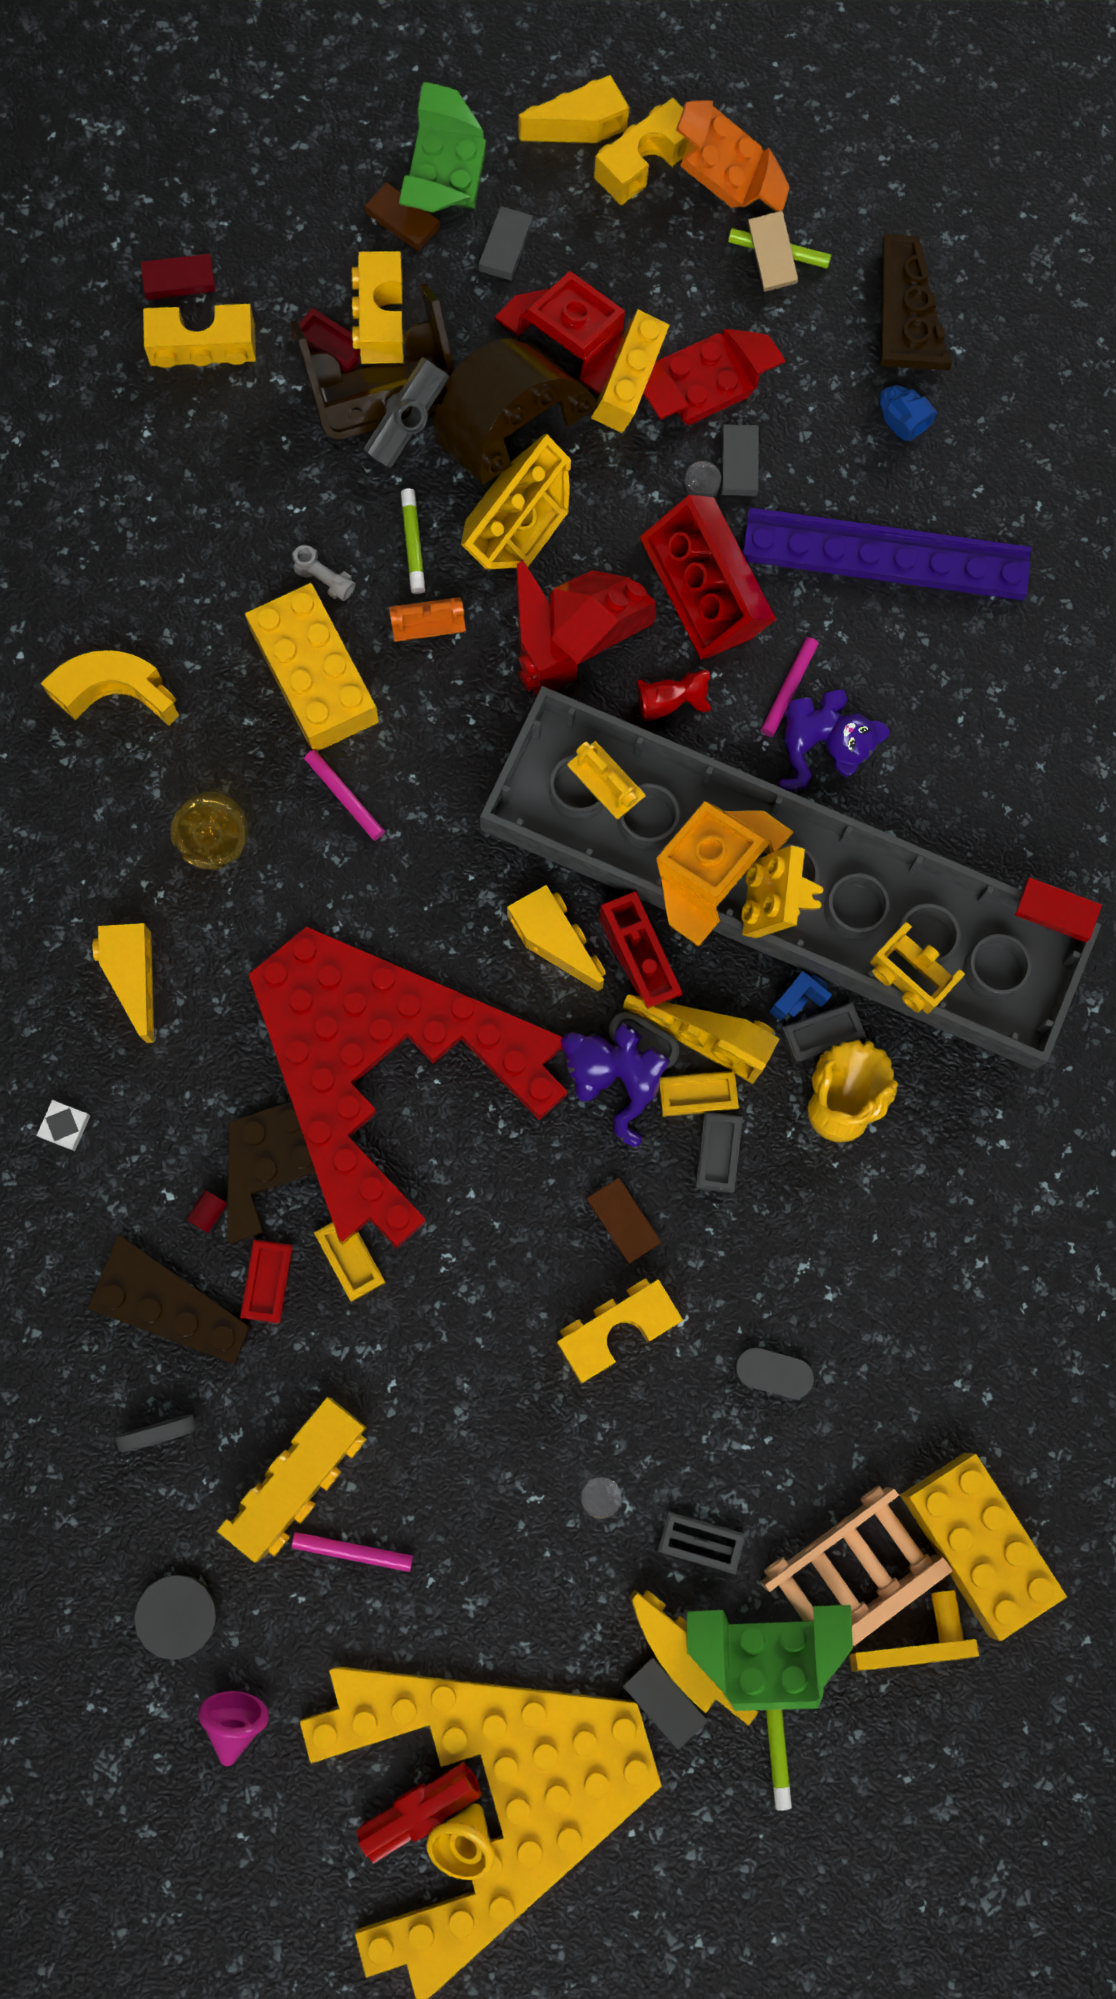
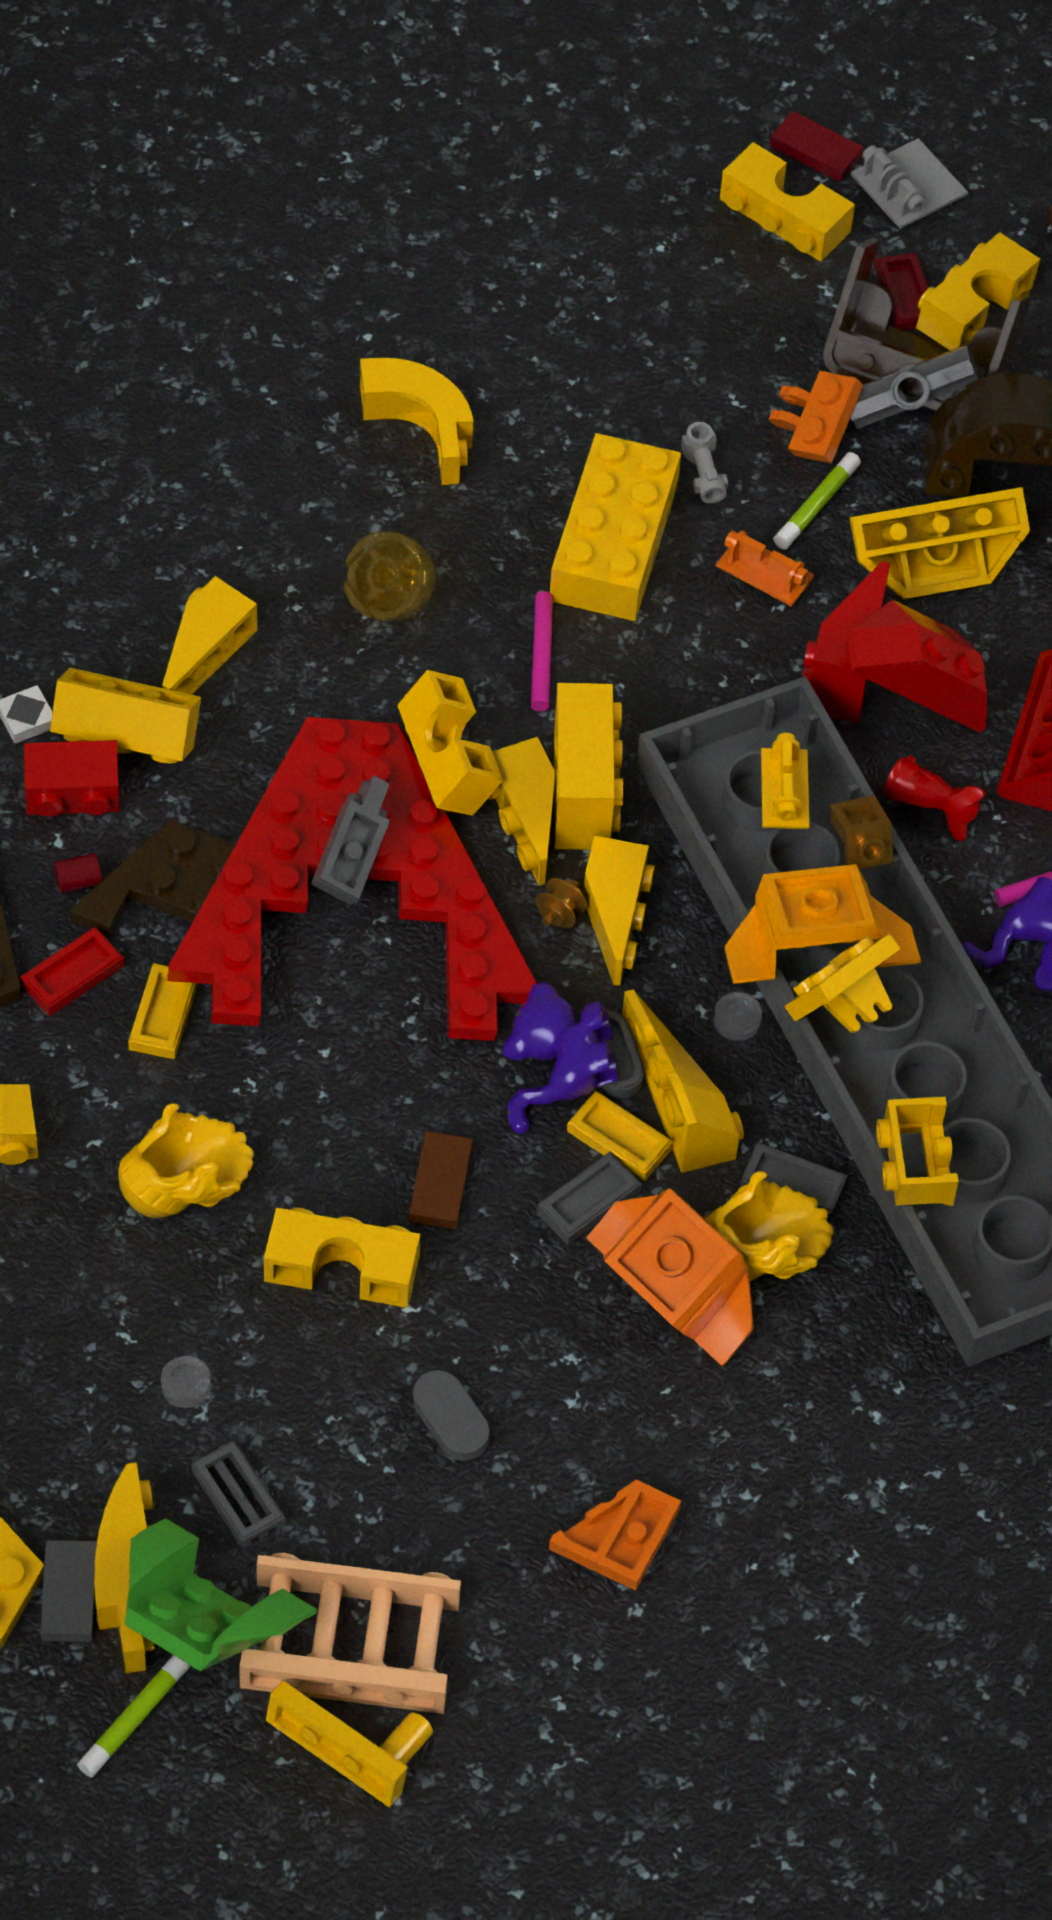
camera: 45 degrees right, 20 degrees down
(133, 1076) = (122, 710): none -> yellow brick
(140, 1150) = (71, 777): none -> red brick
(260, 258) = (907, 182): none -> light grey hinge
(330, 906) = (456, 770): none -> yellow arch
(368, 478) = (823, 417): none -> orange hinge
(369, 1044) = (353, 842): none -> dark grey hinge
(432, 908) = (526, 801): none -> yellow slope
(457, 860) = (586, 764): none -> yellow brick
(472, 1360) = (184, 1164): none -> yellow hair
(522, 967) = (561, 903): none -> pearl gold wheel
(639, 950) = (681, 958): red slope -> none
(681, 770) = (864, 832): none -> pearl gold bracket
(689, 954) = (737, 1016): none -> clear tile
(793, 998) = (797, 1121): blue bracket -> none
(819, 1161) = (680, 1269): none -> orange piece
(942, 1361) = (620, 1534): none -> orange wing
(983, 1545) = (496, 1709): yellow brick -> none

